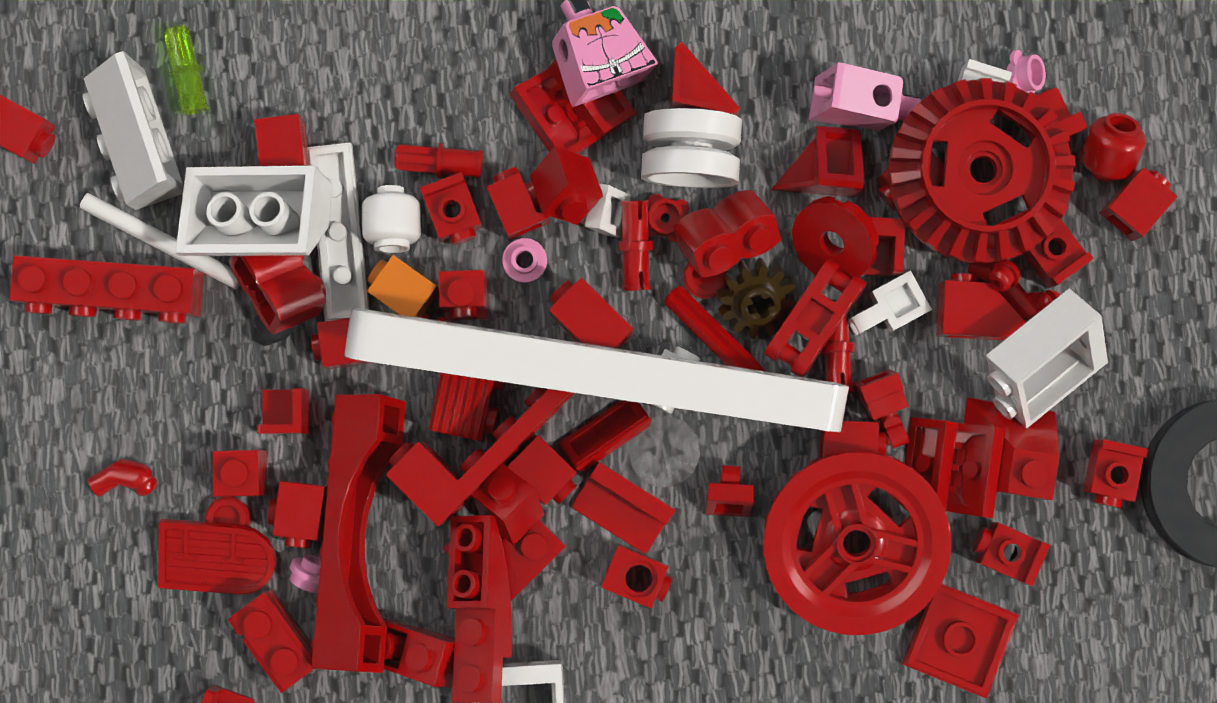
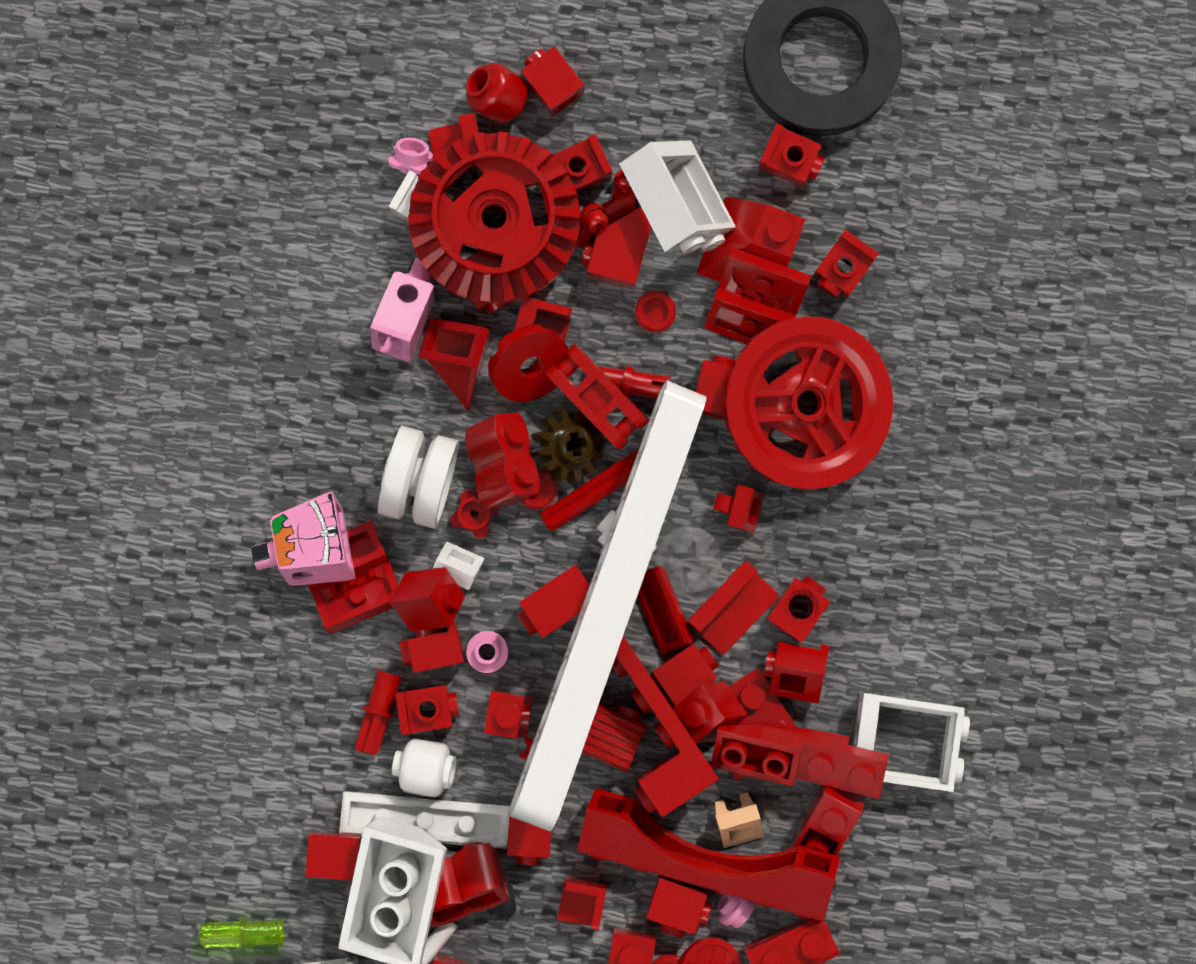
camera: 80 degrees left, 0 degrees up
(397, 559) = (740, 824): none -> light nougat tile
(401, 287) = (490, 771): orange brick -> none
(569, 588) = (797, 671): none -> red brick
(635, 245) = (494, 546): red pin -> none
(695, 87) = (363, 461): red slope -> none
(881, 398) = (682, 351): red piece -> none
(894, 304) = (597, 320): white plate -> none
(917, 362) = (655, 311): none -> red tile
(960, 640) = (914, 326): red tile -> none

